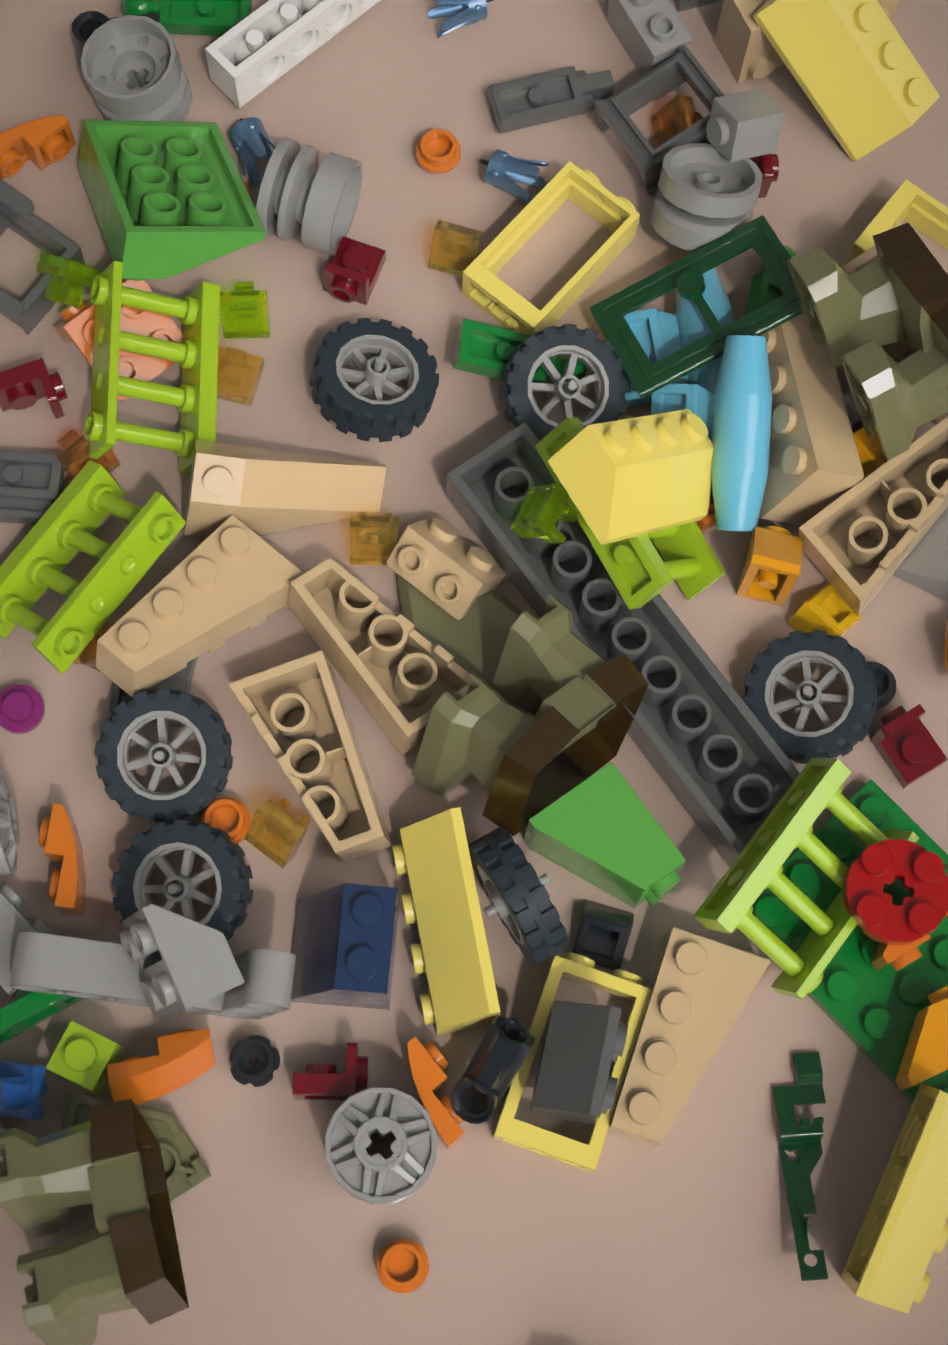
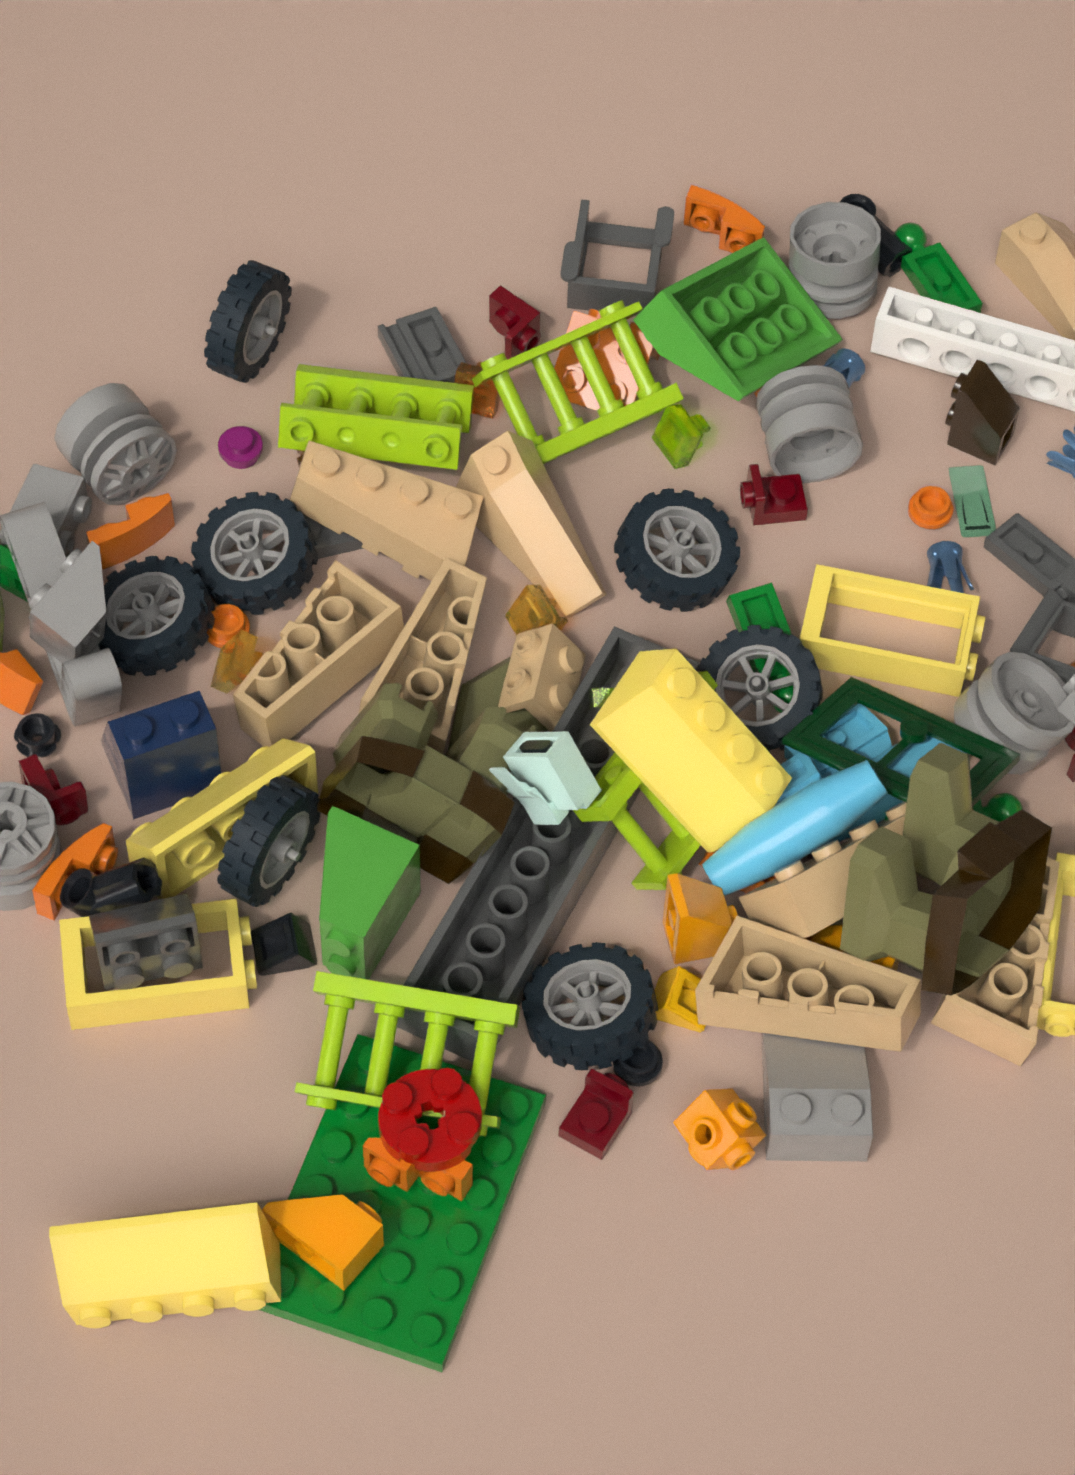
camera: 65 degrees right, 15 degrees down
(68, 279) = (618, 288): clear neon green tile -> none
(238, 375) = (621, 459): clear yellow tile -> none
(376, 56) = (981, 415): none -> dark brown slope
(441, 114) = (972, 501): none -> clear green sticker
(453, 247) = (845, 551): clear yellow tile -> none
(608, 609) = (548, 776): none -> light aqua piece
(690, 1011) = (221, 1030): tan wedge -> none
(808, 1142) = (183, 1176): dark green piece -> none

